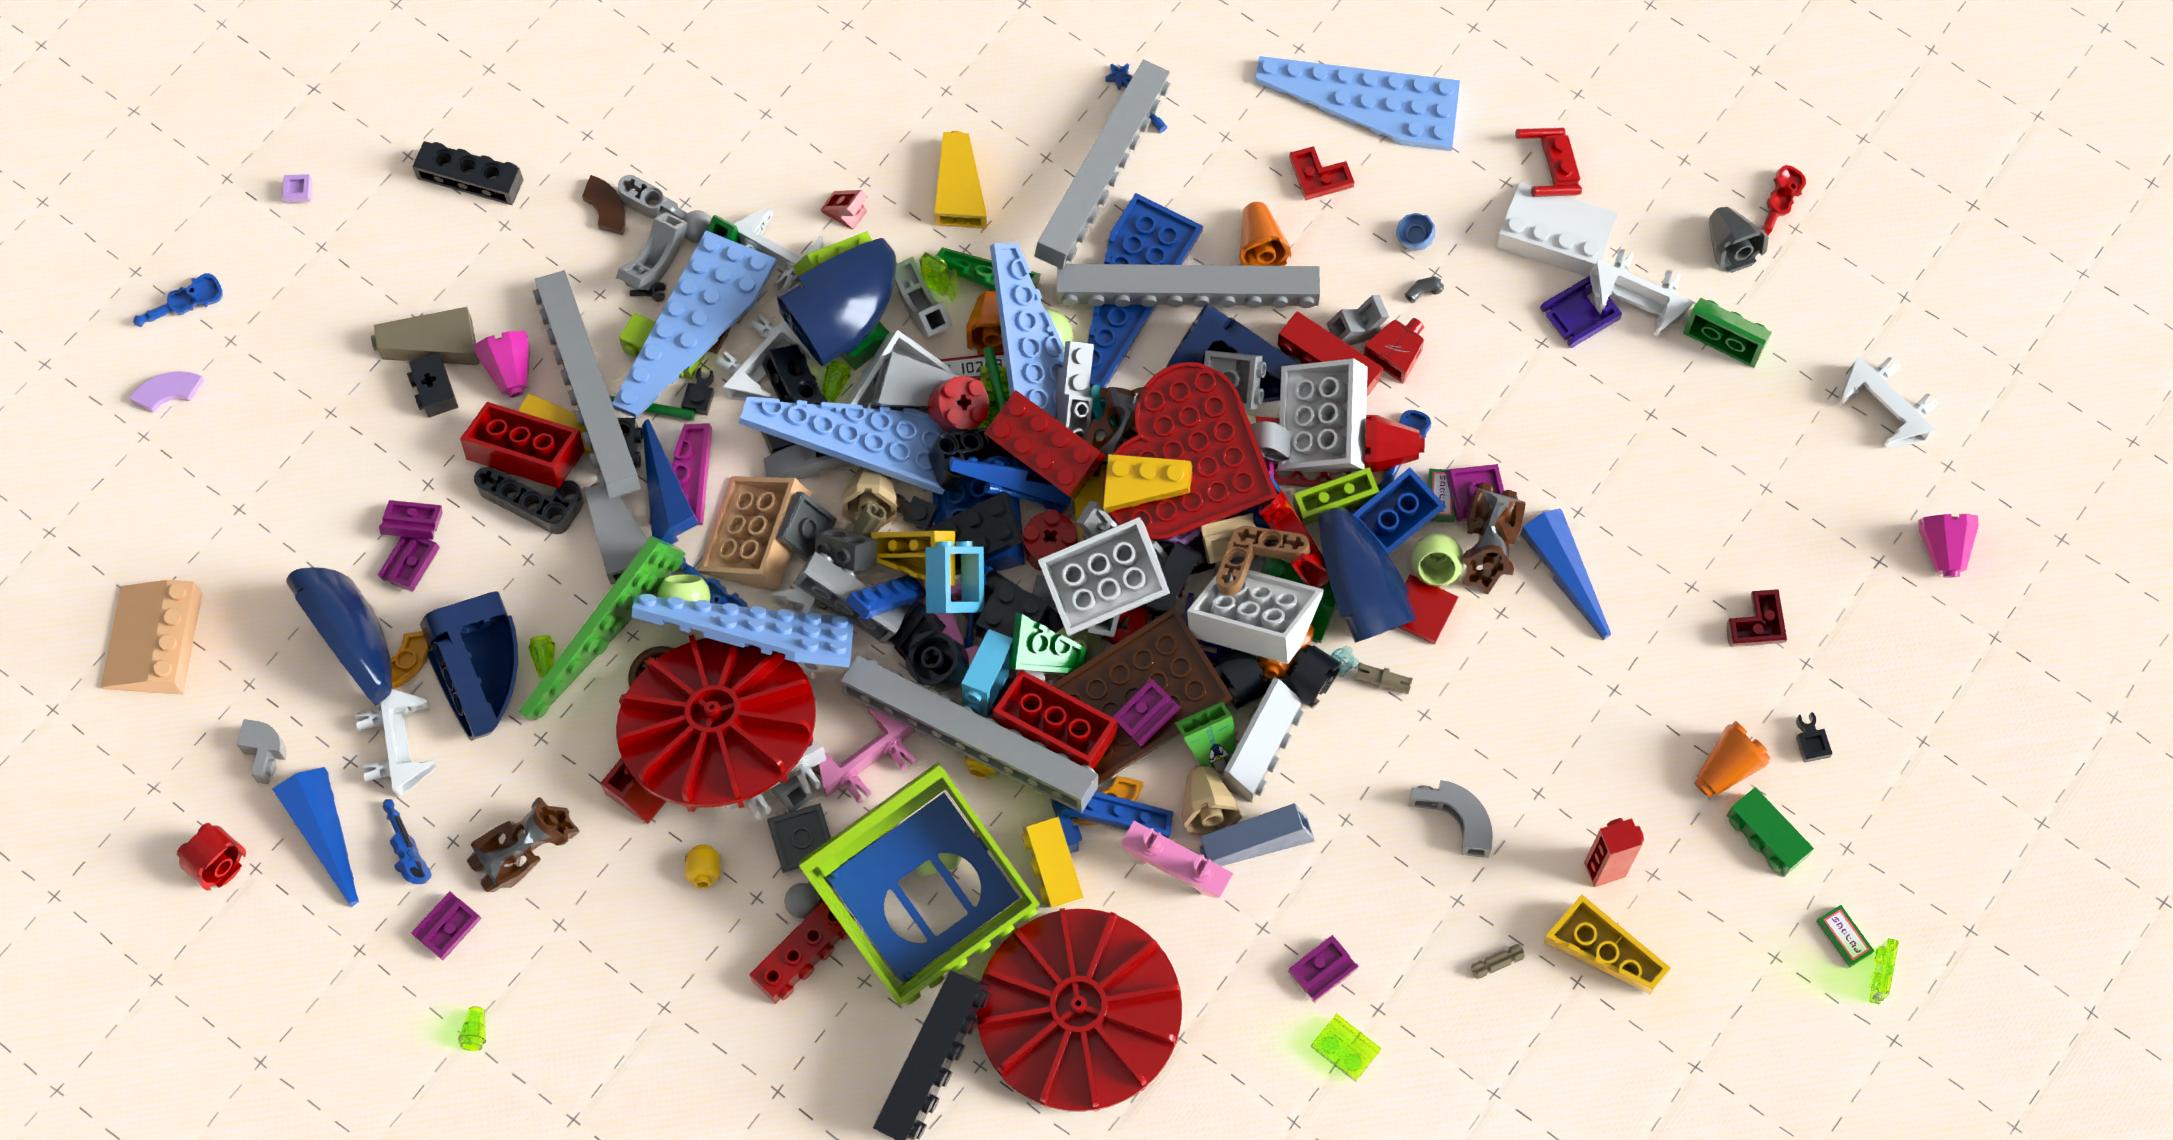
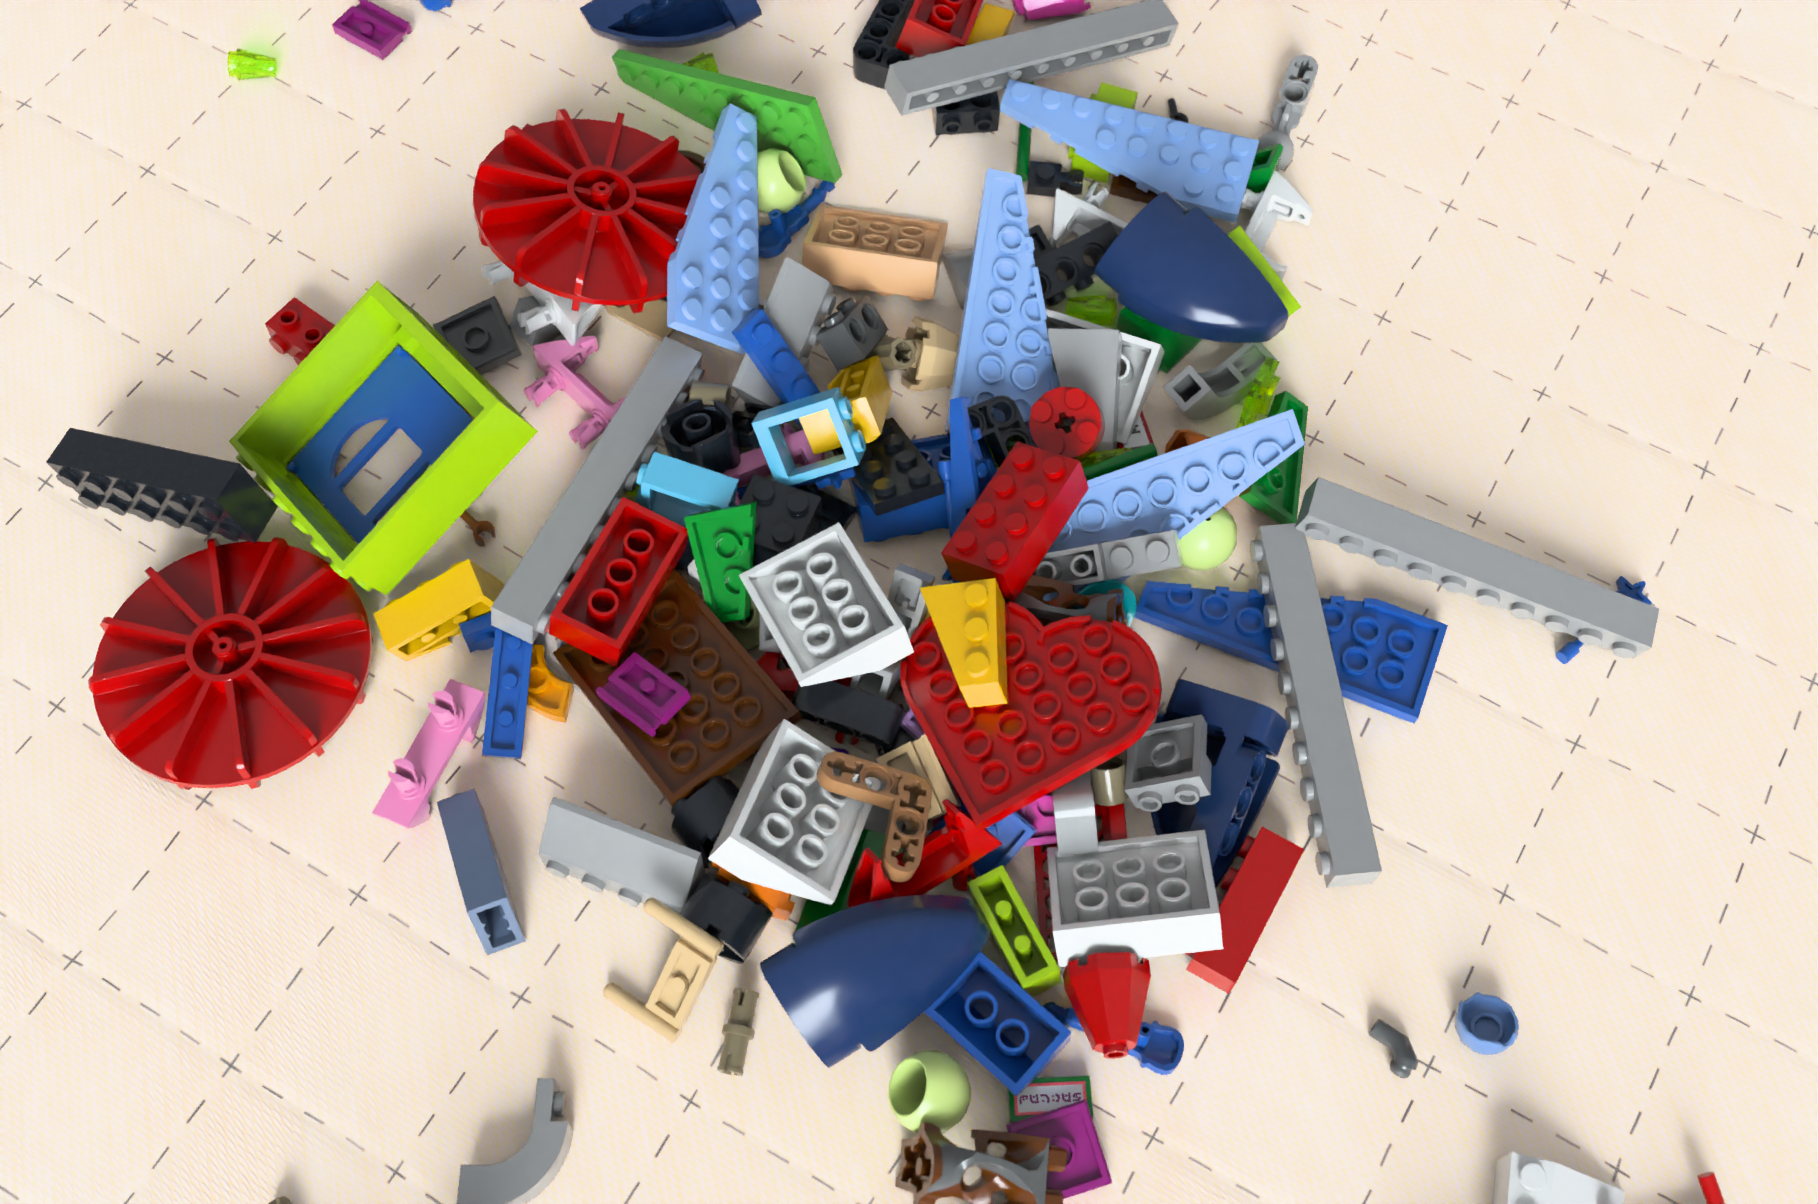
camera: 80 degrees right, 5 degrees down
(520, 840) = (460, 62): reddish brown hips -> none
(607, 203) = (1272, 68): reddish brown tile -> none
(615, 530) = (859, 117): light grey slope -> none
(657, 255) = (1240, 114): light grey arch -> none
(668, 504) = (887, 156): blue wedge -> none
(692, 464) = (922, 178): dark pink wing -> none
(702, 866) = (439, 245): yellow head -> none
(802, 523) = (888, 286): dark grey plate -> none
(846, 207) = (1335, 299): slope -> none
(893, 655) = (712, 391): none -> dark tan piece
(918, 511) = (926, 418): black plate -> none
(958, 187) = (1405, 413): yellow slope -> none
(1045, 529) = (897, 546): red brick -> none
(1207, 803) = (523, 793): tan cone -> none
(1210, 735) = (618, 778): bright green torso -> none
(1262, 238) = (1414, 796): orange cone -> none
(1319, 180) = (1539, 871): red plate -> none
(1323, 968) = (287, 978): magenta plate -> none
(1346, 1047) = (167, 1019): clear neon green plate -> none
(1351, 662) = (751, 968): clear light blue plate -> none
(1353, 705) = (680, 979): none -> tan plate
(1361, 323) = (1307, 946): light grey brick -> none
(1396, 348) = (1282, 1011): red torso -> none
(1398, 105) = (1700, 972): light blue wing -> none
(1431, 608) = (856, 1090): red tile -> none

